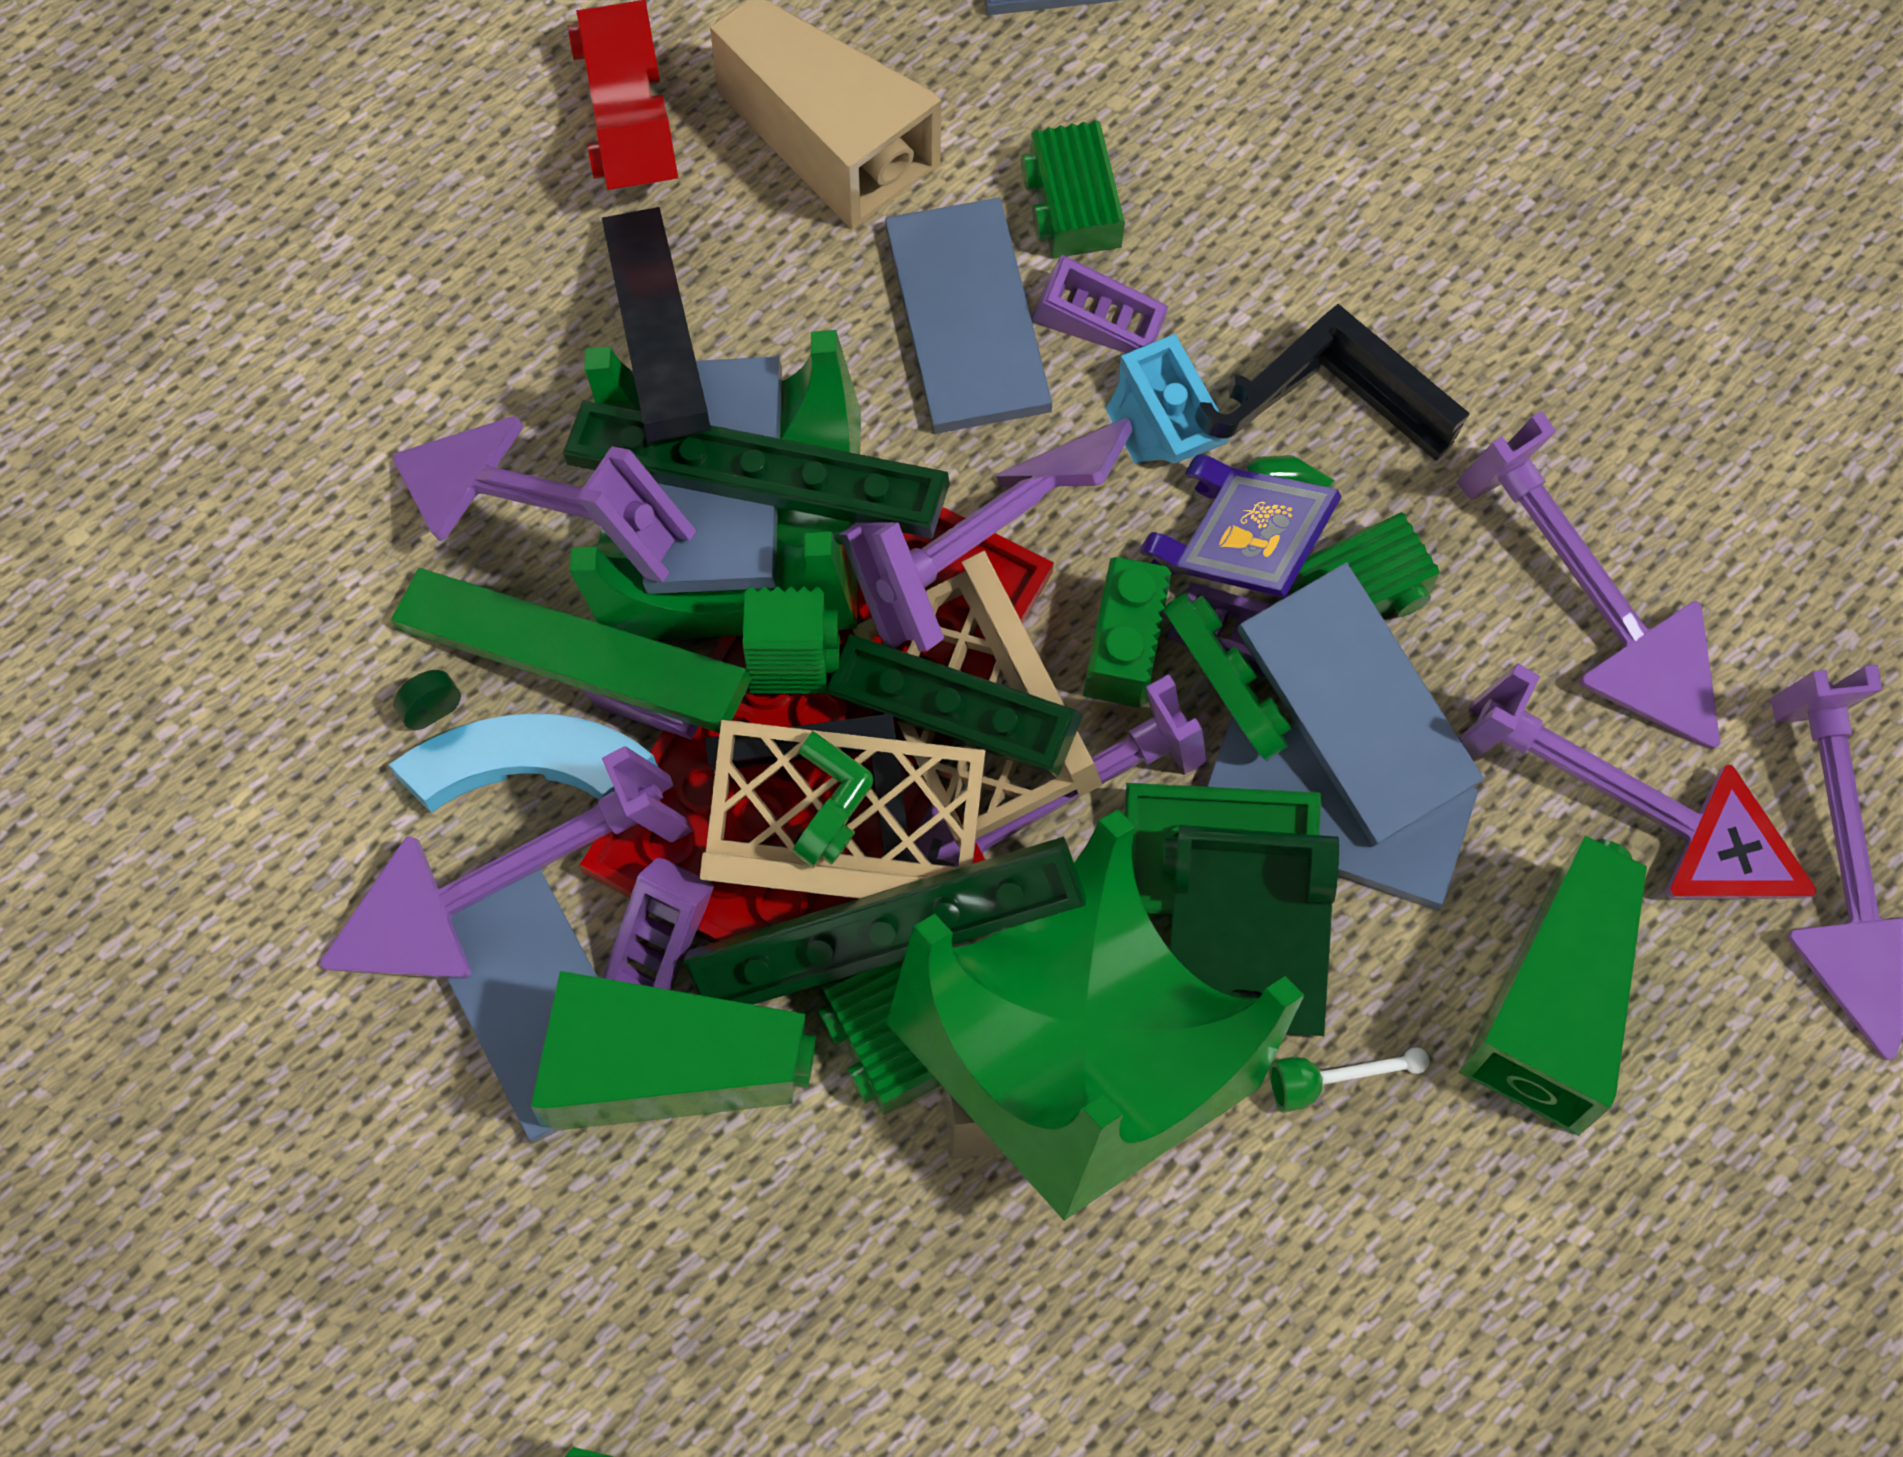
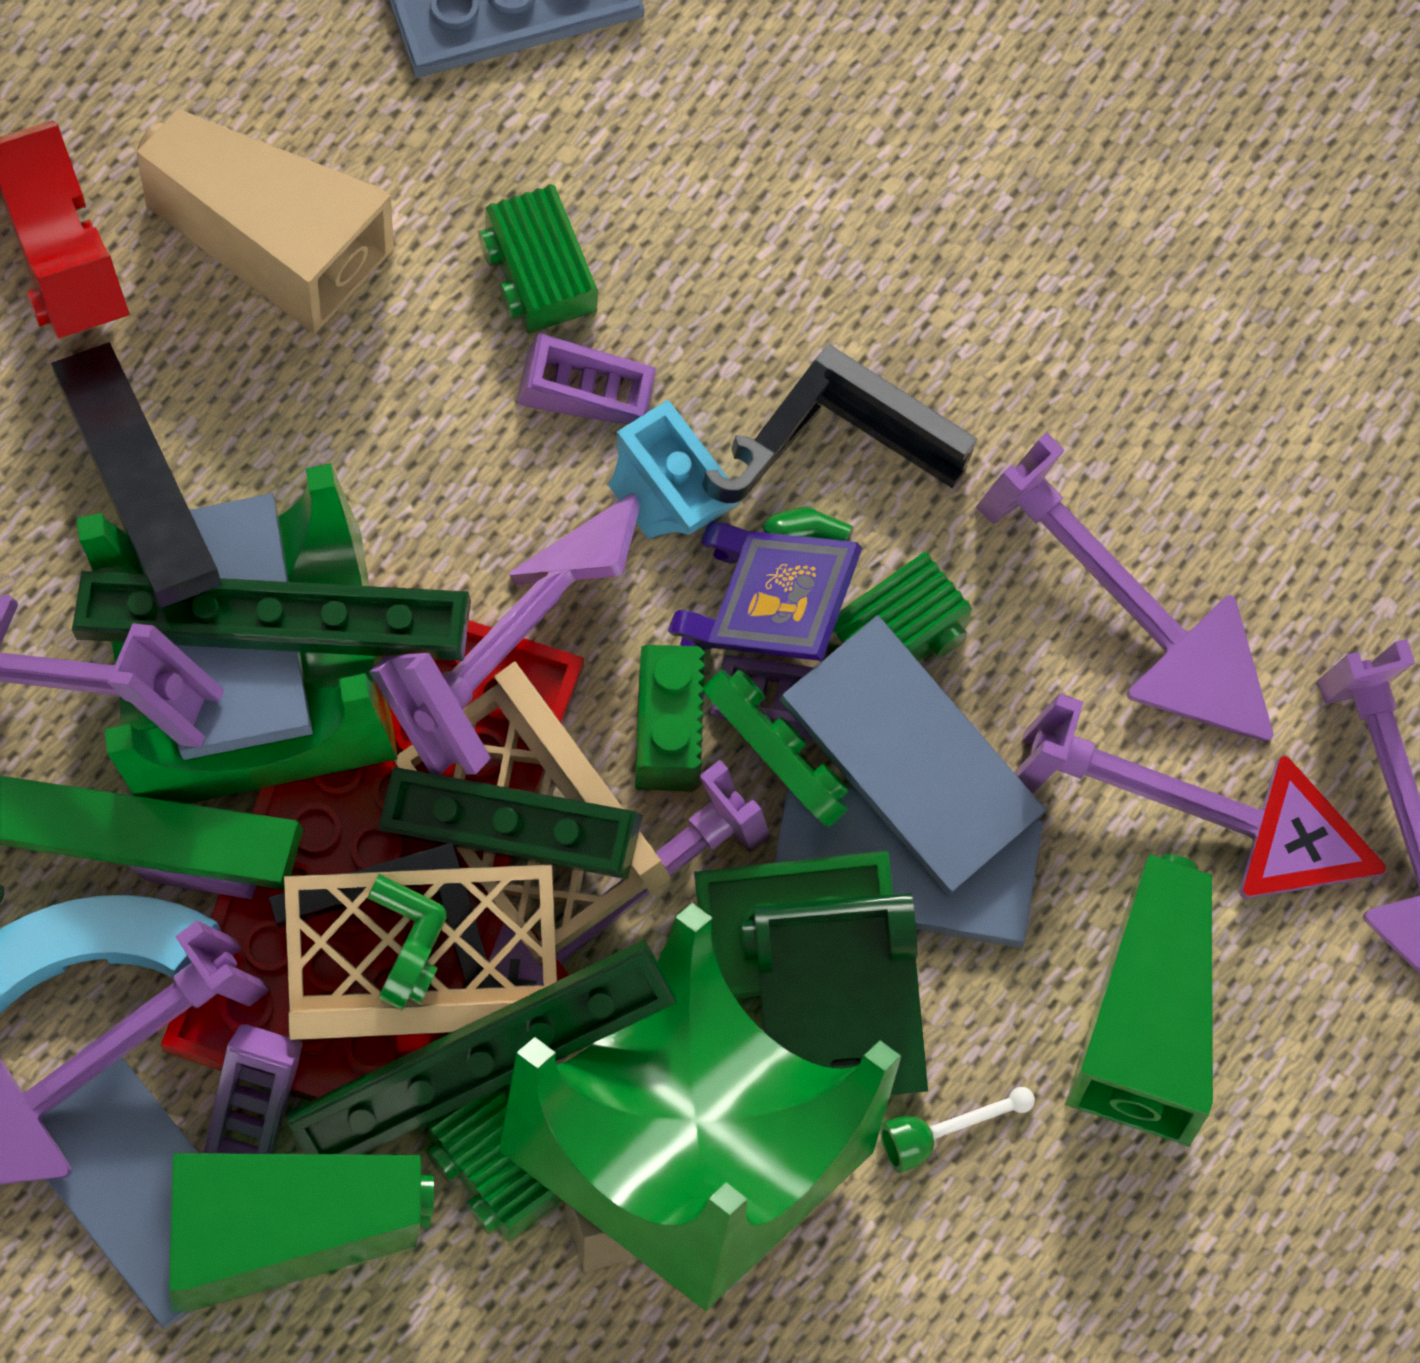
camera: 15 degrees left, 0 degrees up
(789, 640) = (337, 785): green brick -> none
(968, 315) = (451, 409): sand blue tile -> none

